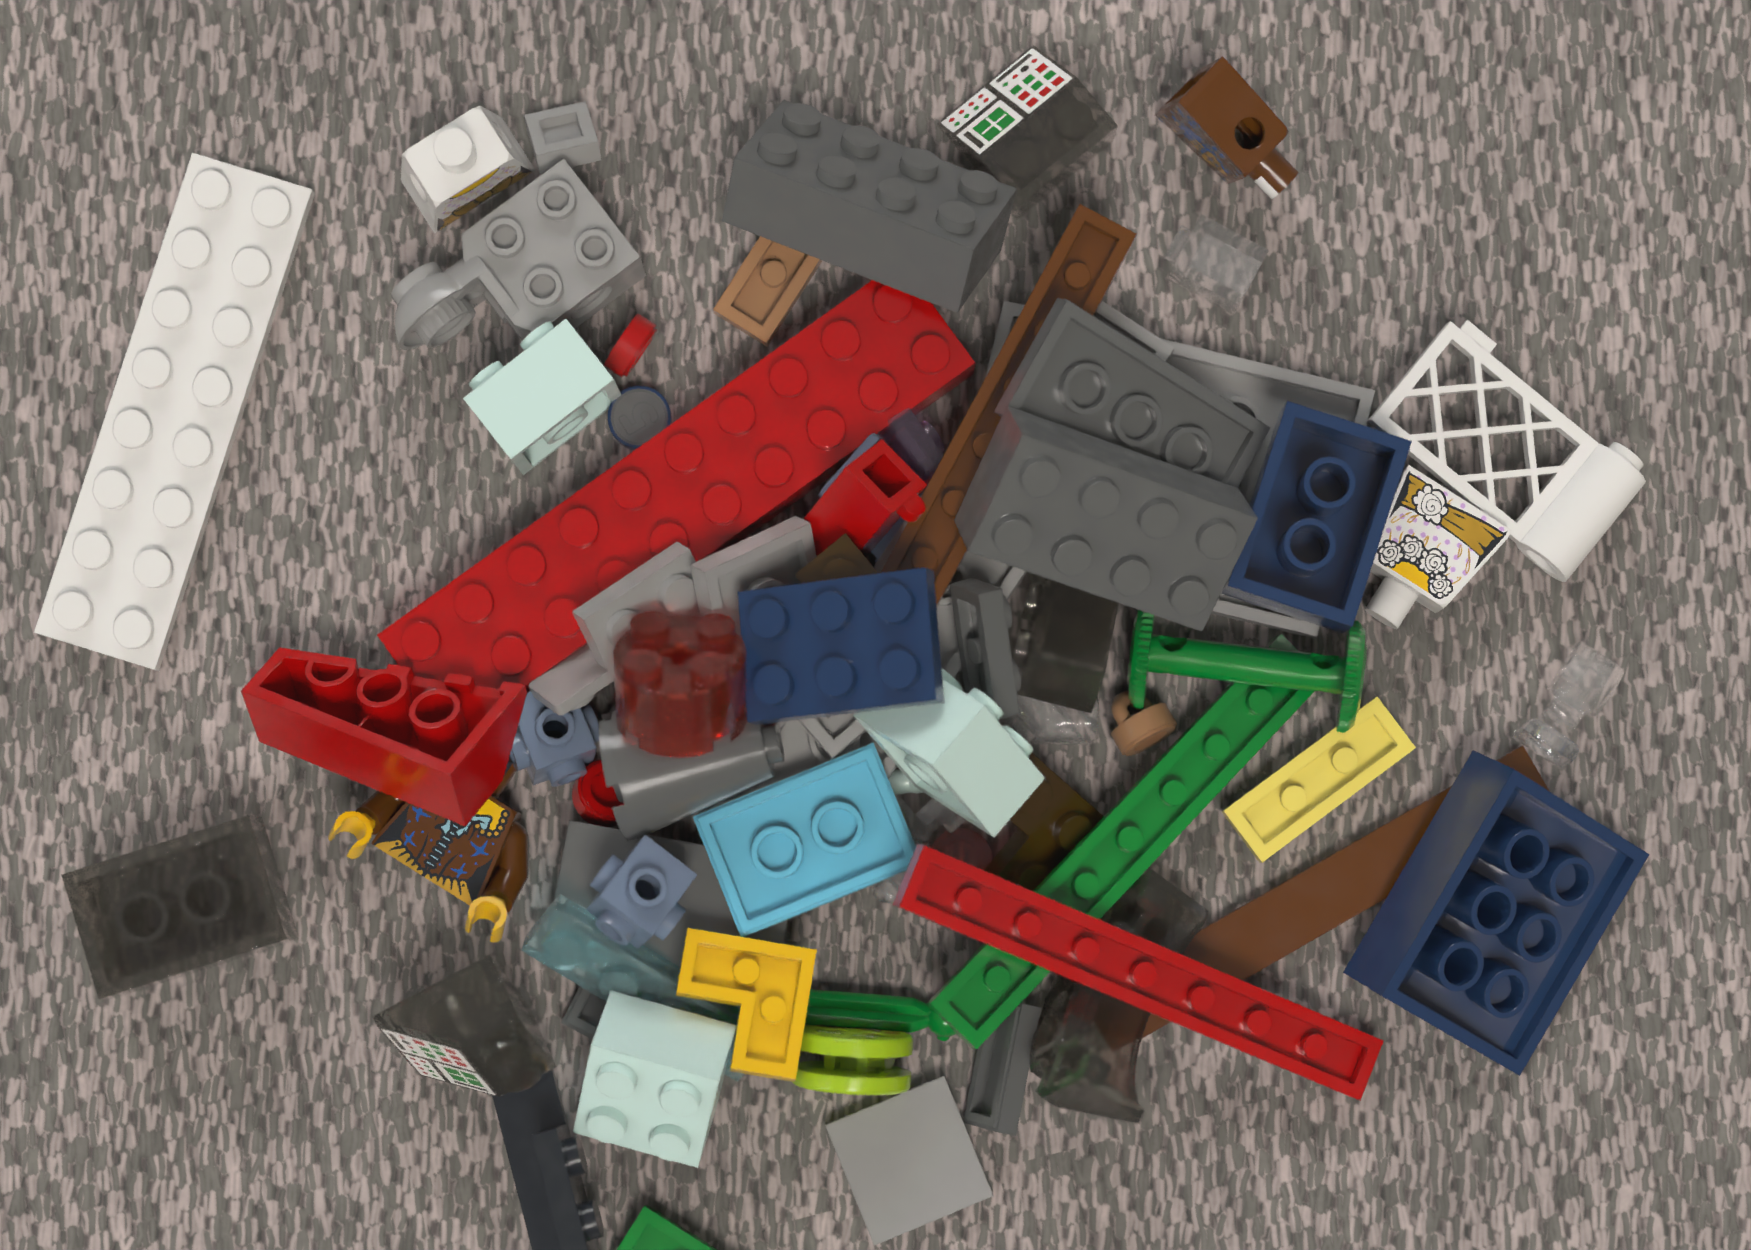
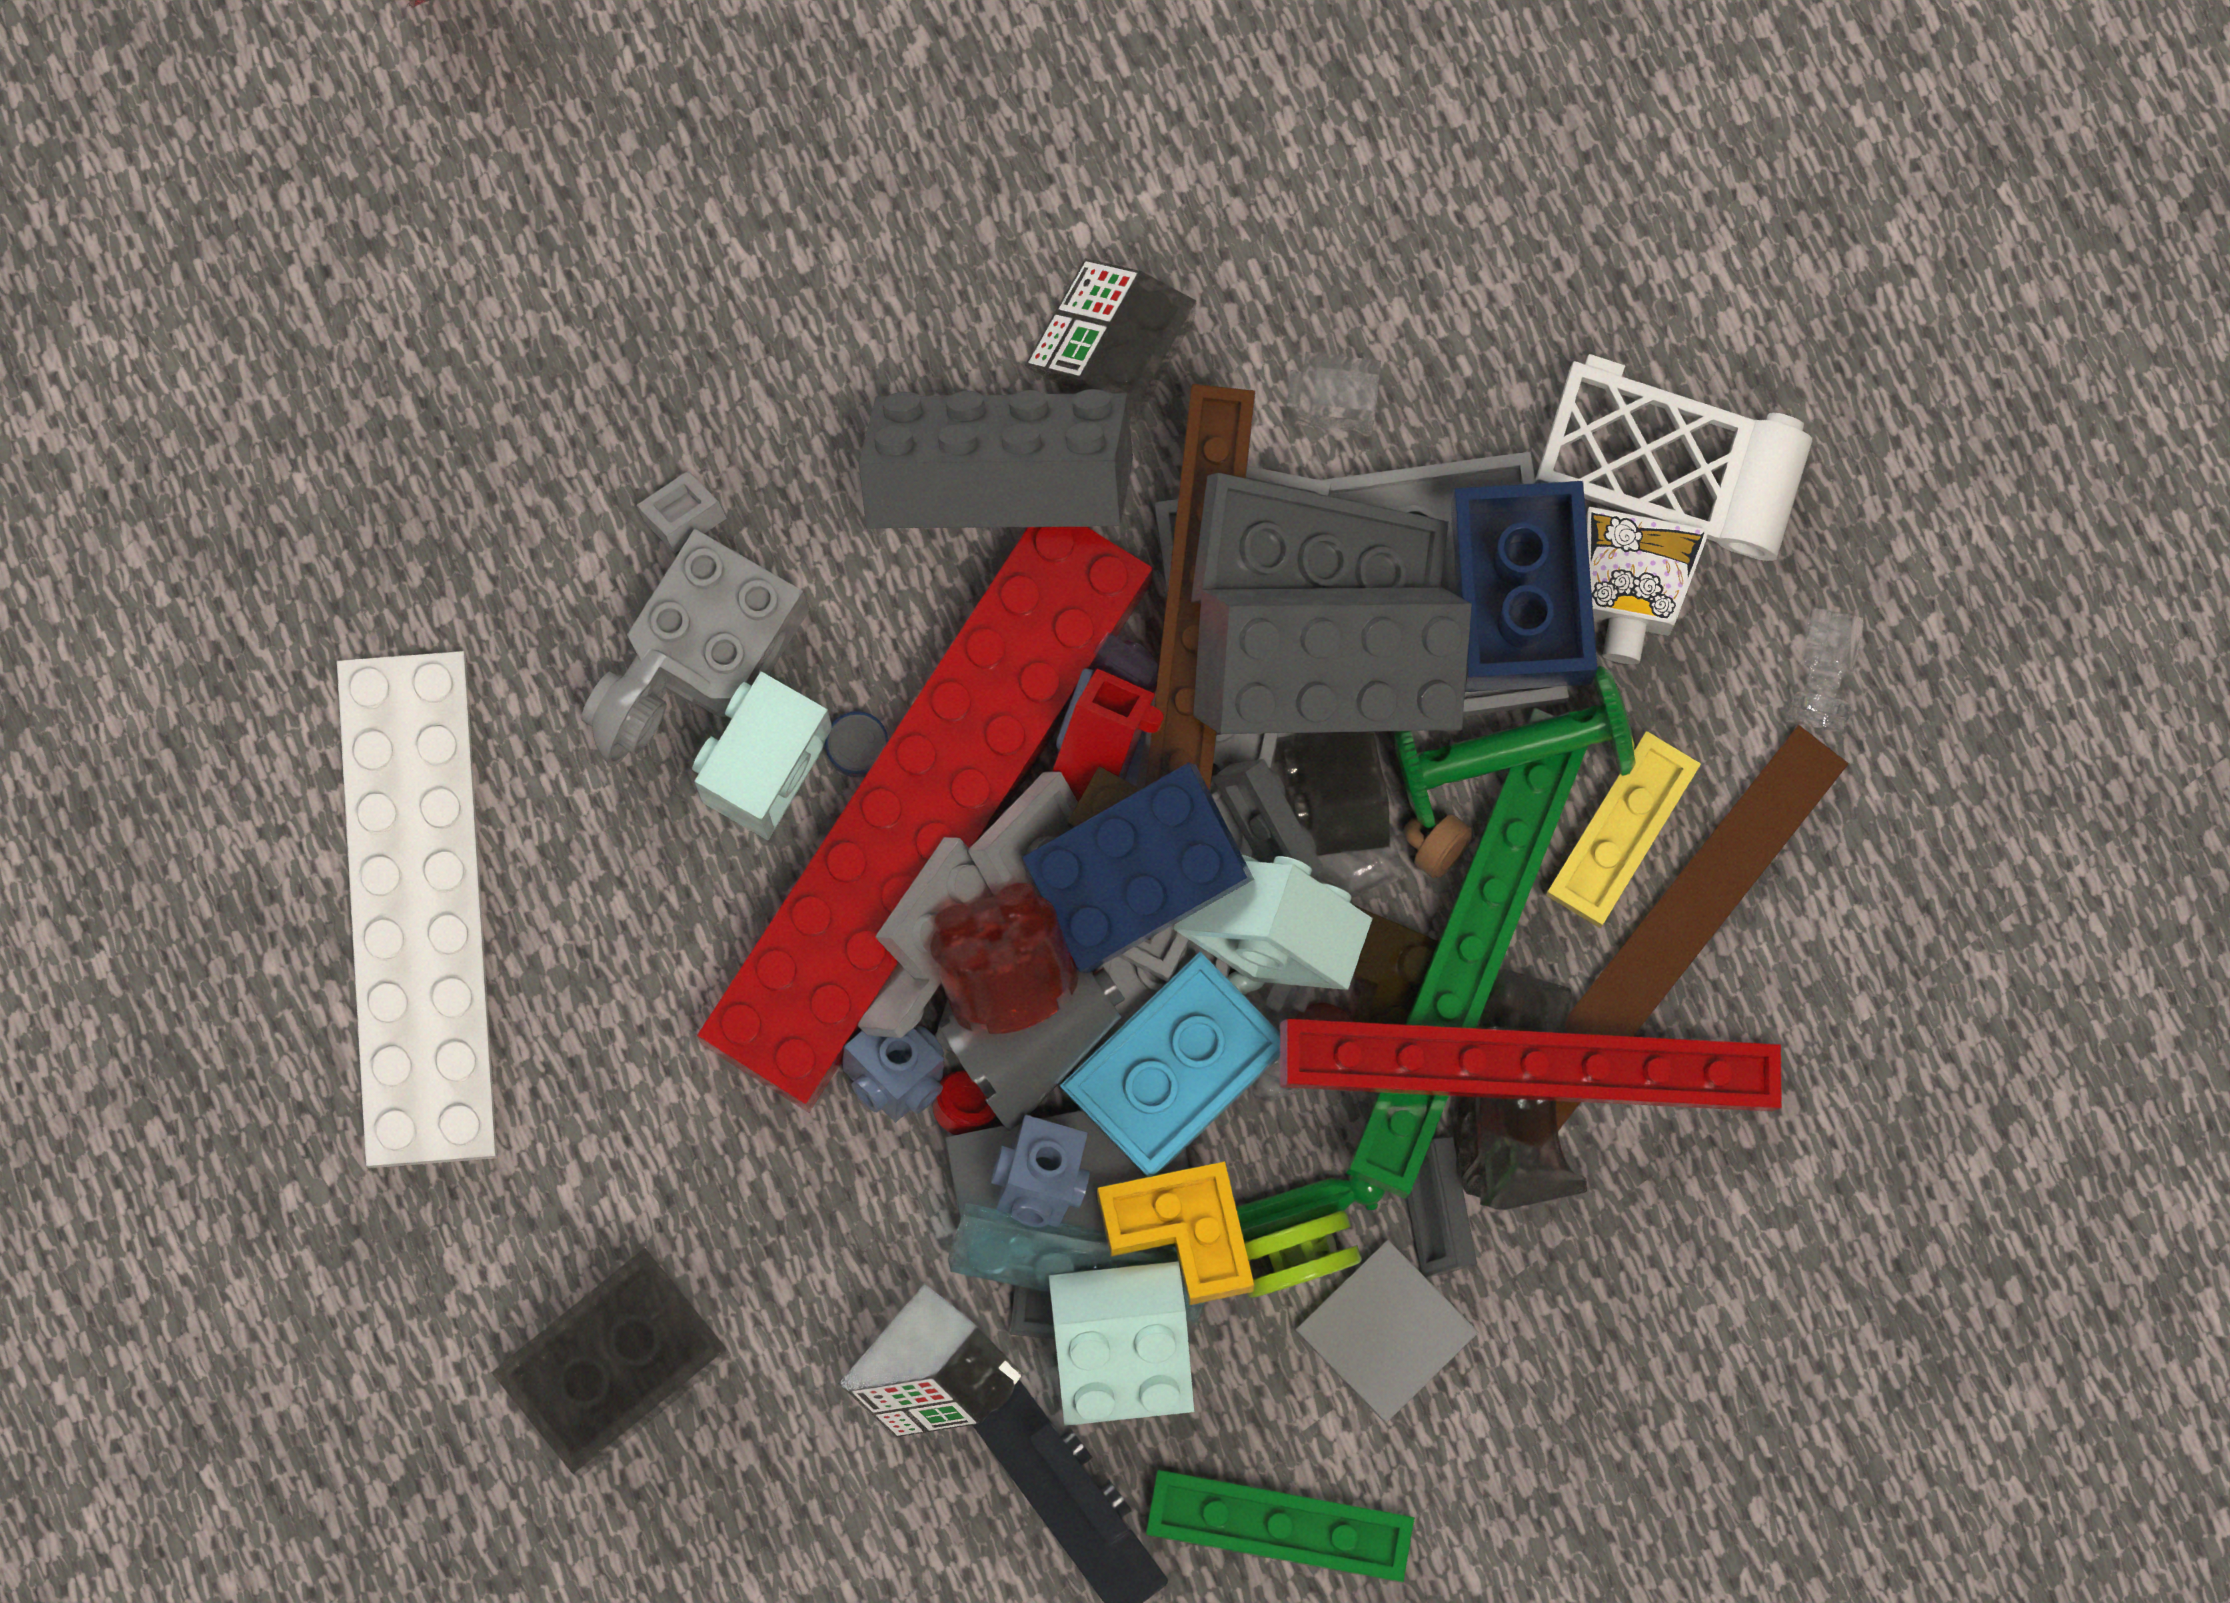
camera: 25 degrees left, 5 degrees down
(388, 729) = (743, 1115): red wedge -> none
(462, 166) = (598, 576): white torso -> none
(474, 862) = (838, 1196): torso -> none
(631, 346) = (824, 676): red tile -> none
(765, 289) = (928, 577): medium nougat plate -> none
(1206, 118) = (1275, 260): reddish brown torso -> none
(1496, 912) = (1836, 885): dark blue slope -> none

